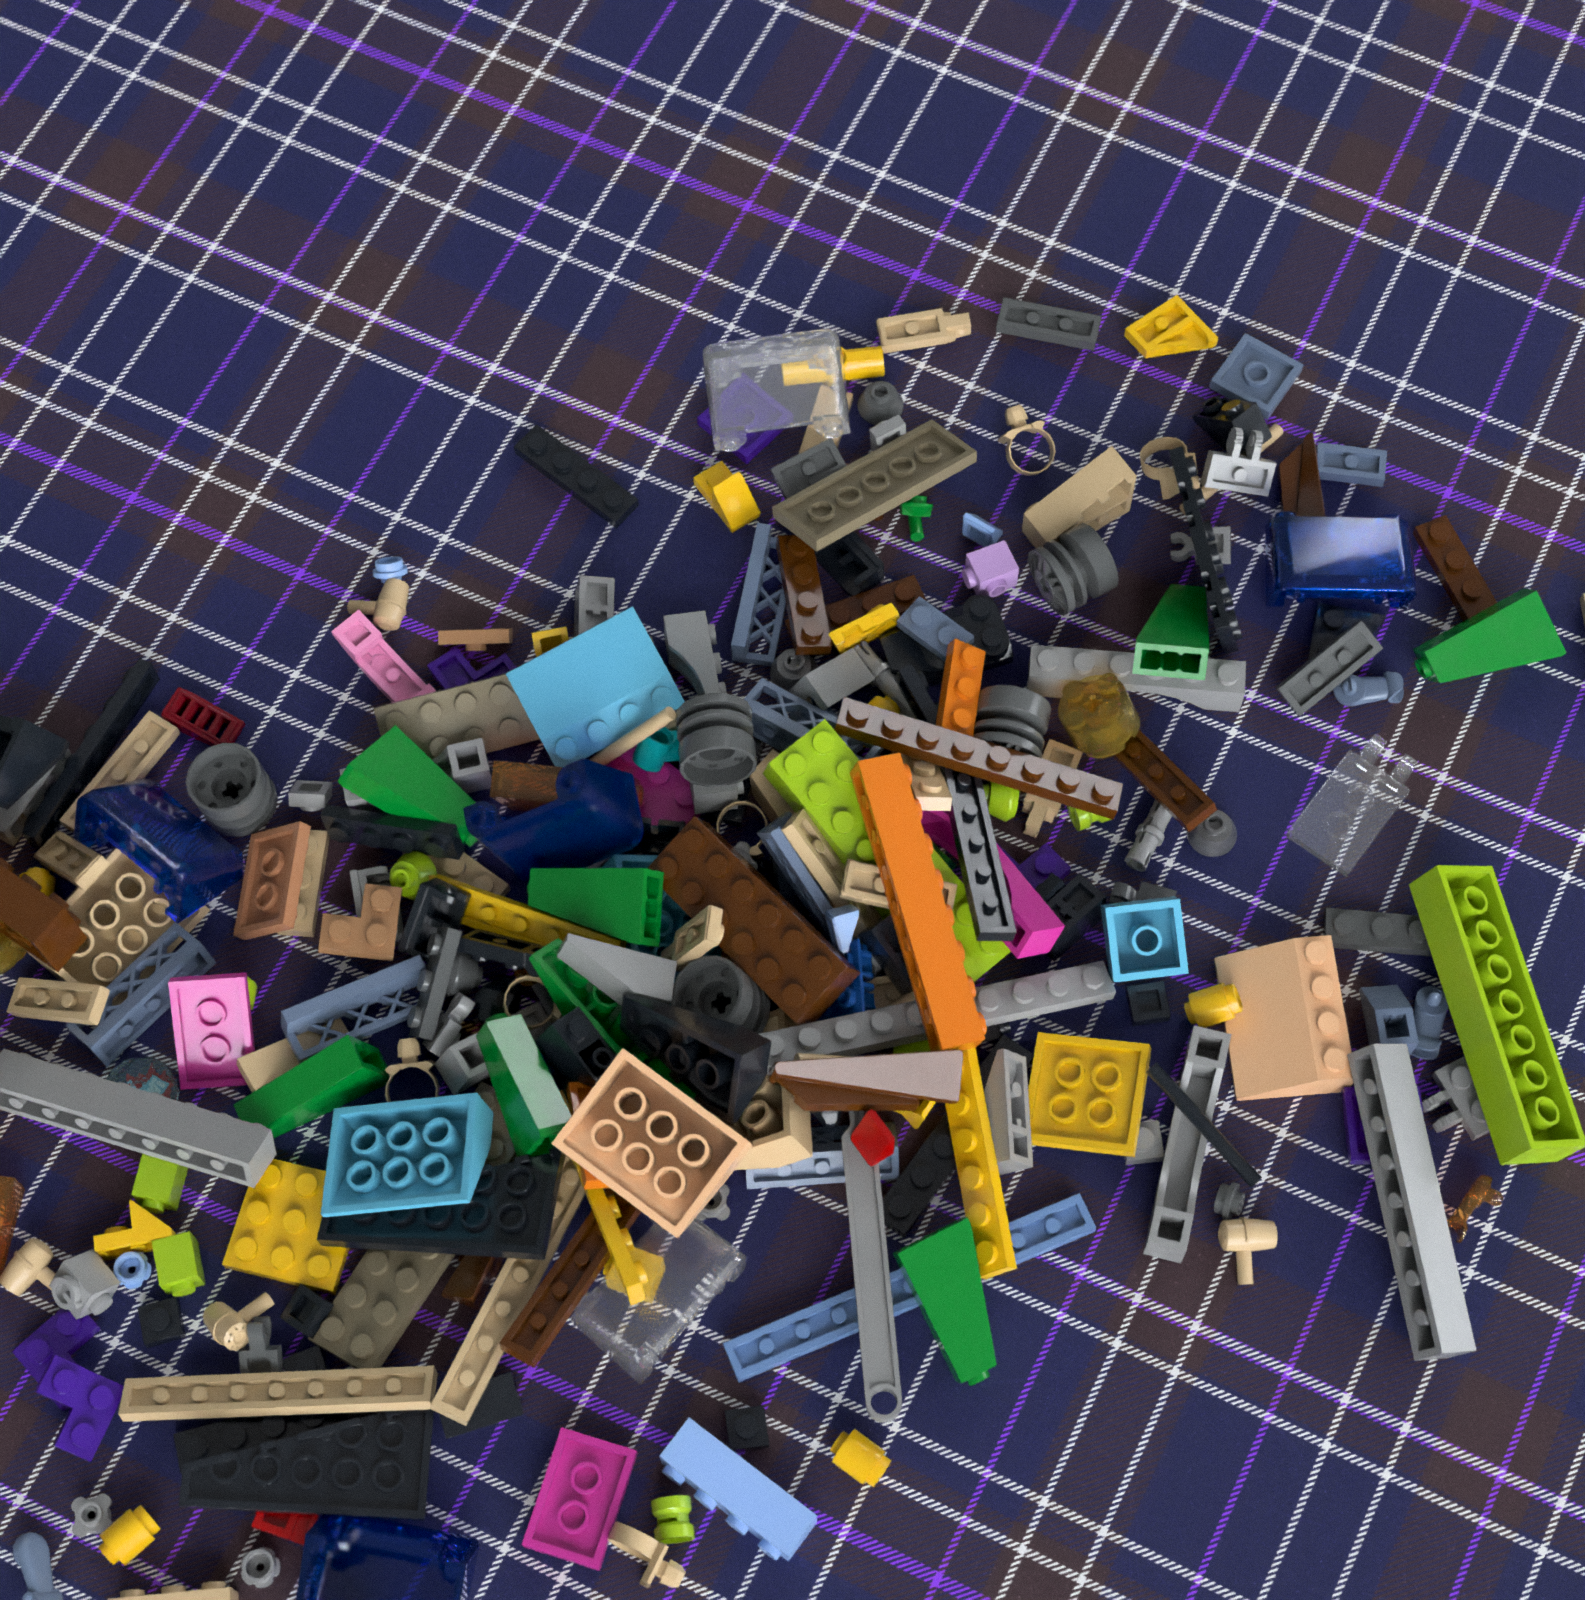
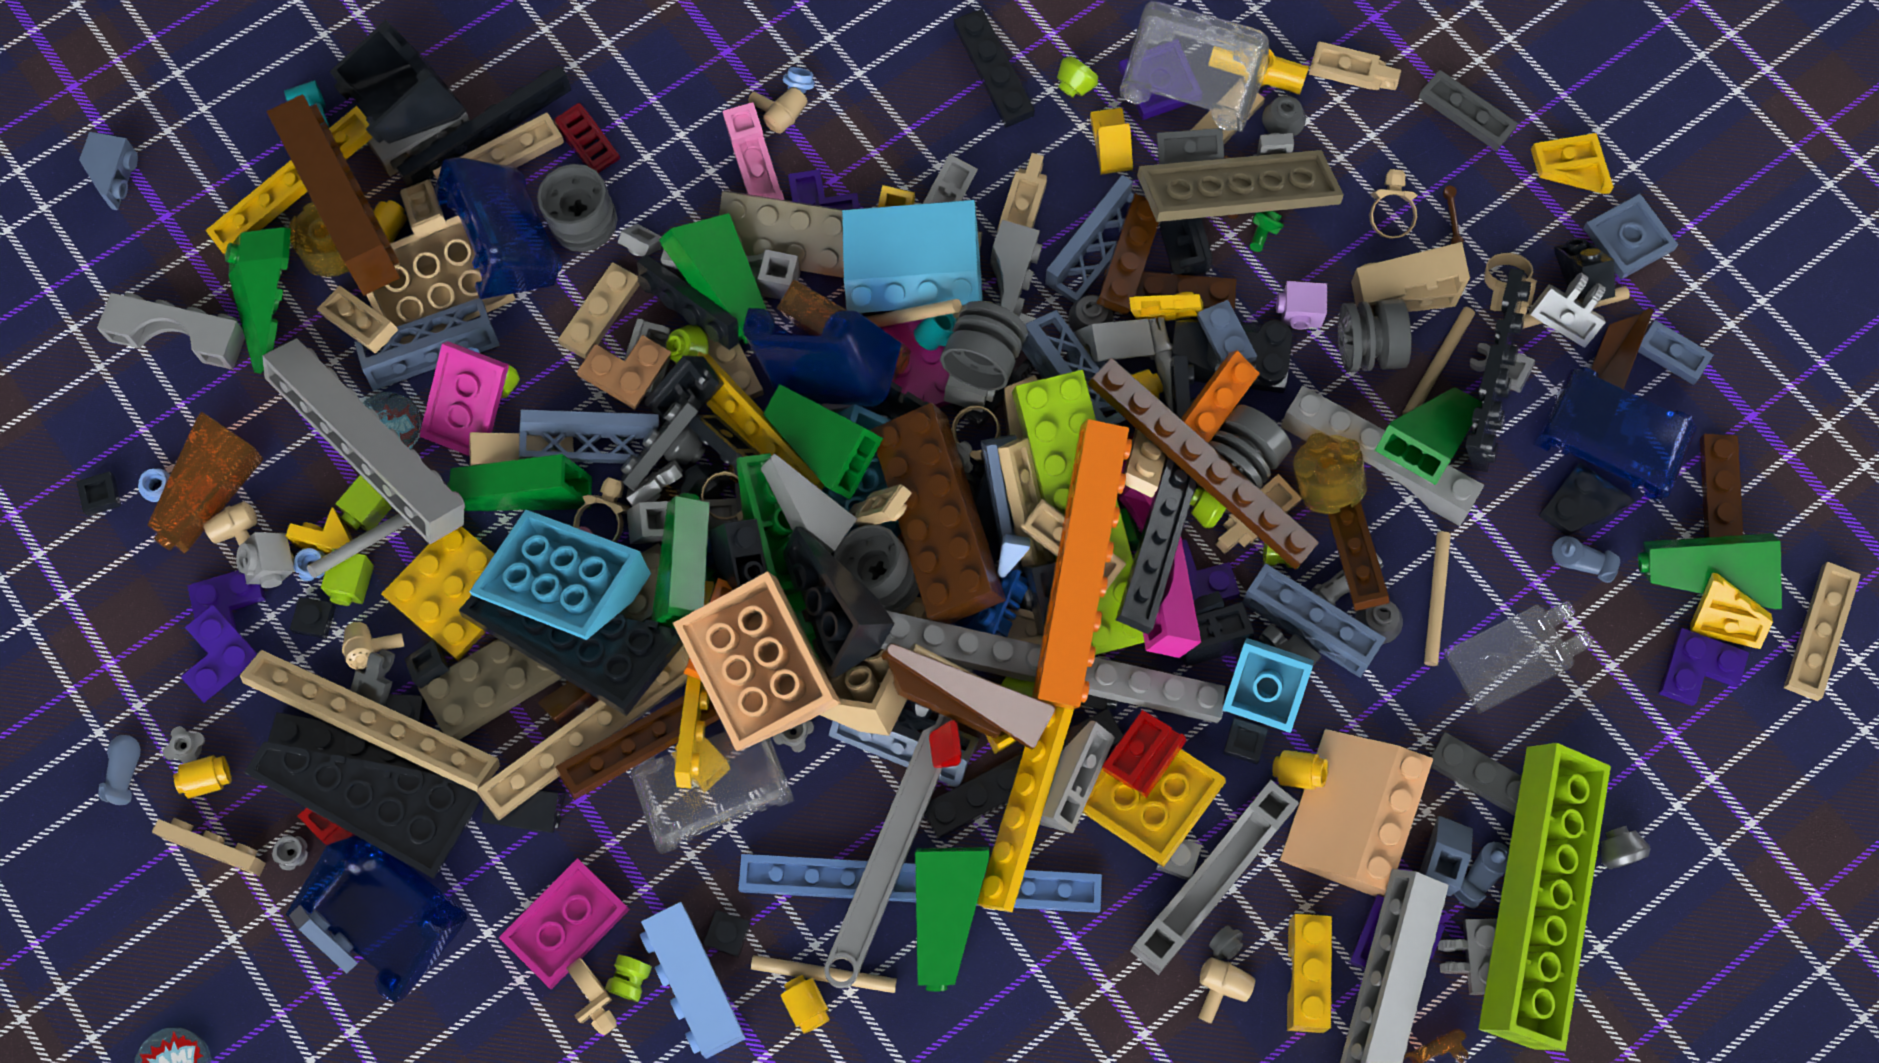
camera: 25 degrees right, 5 degrees up
(176, 1224) = (356, 545): none -> light grey bar
(272, 881) = (573, 298): nougat plate -> none
(475, 638) = (838, 169): medium nougat plate -> none
(663, 450) = (1076, 77): none -> lime cone
(671, 582) = (1025, 194): none -> tan hinge
(858, 1421) = (817, 972): none -> tan bar
(980, 530) = (1314, 265): light blue slope -> none
(1062, 1058) = (1144, 753): none -> red plate
(1070, 408) = (1449, 193): none -> reddish brown hinge
(1142, 568) = (1440, 359): none -> tan bar
(1154, 860) = (1313, 620): none -> sand blue fence
(1203, 1124) = (1236, 868): black bar -> none
(1254, 788) = (1437, 598): none -> tan bar
(1329, 667) = (1558, 524): dark grey plate -> none
(1331, 1207) = (1311, 973): none -> yellow arch
(1513, 735) = (1697, 657): none -> dark purple plate
(1524, 680) = (1730, 615): none -> yellow wing
(1540, 937) = (1623, 848): none -> flat silver cone

